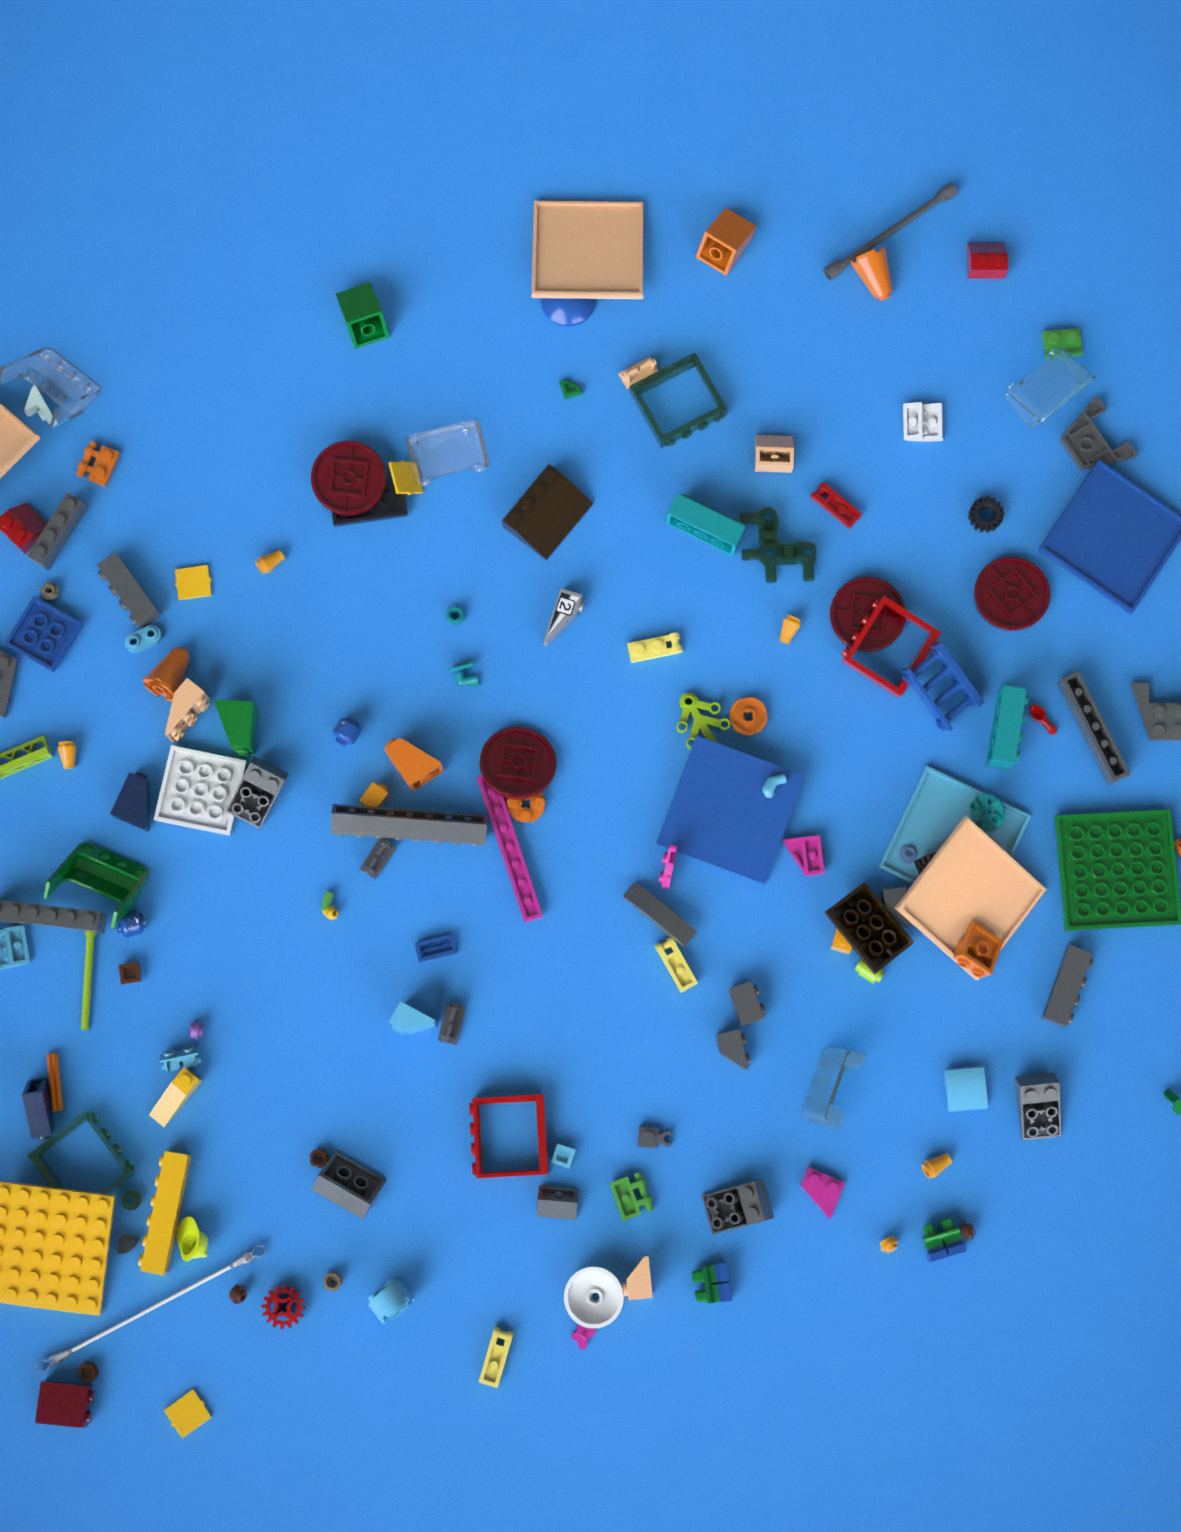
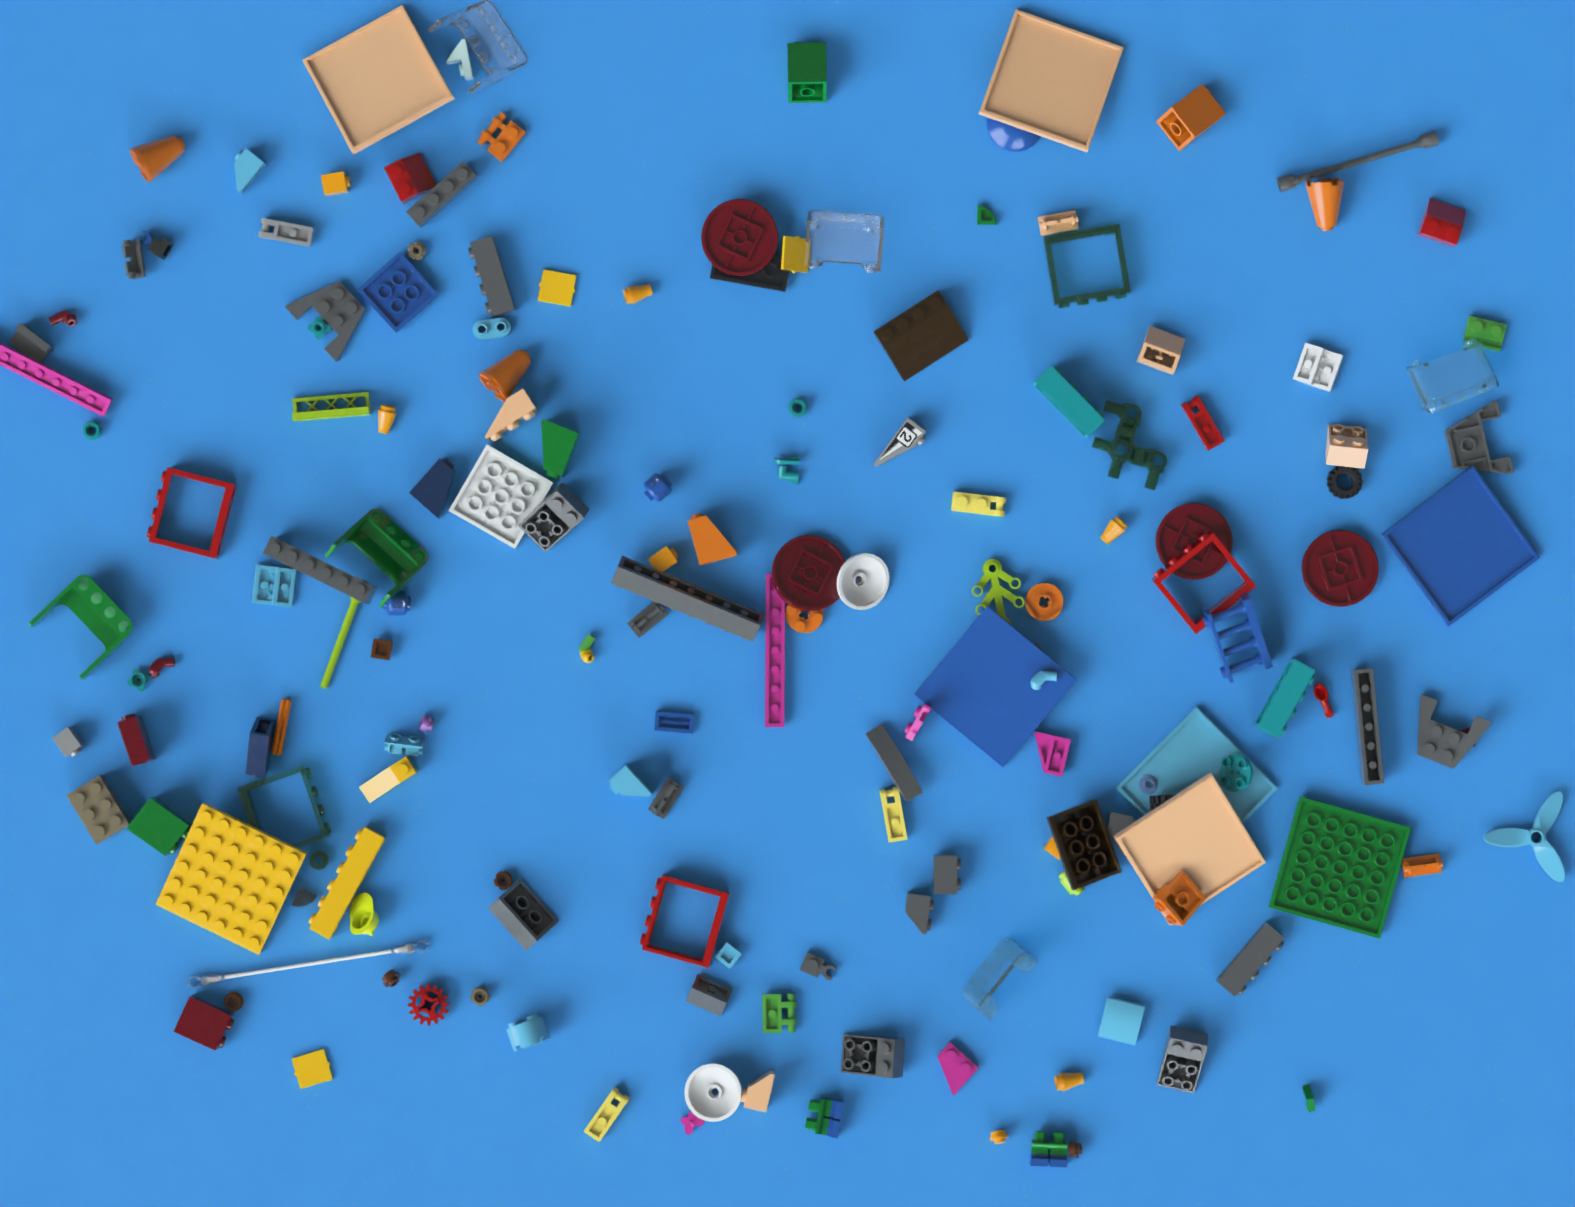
camera: 20 degrees right, 10 degrees up
(579, 751) = (871, 582): none -> white dish
(976, 481) = (1346, 446): none -> light nougat slope

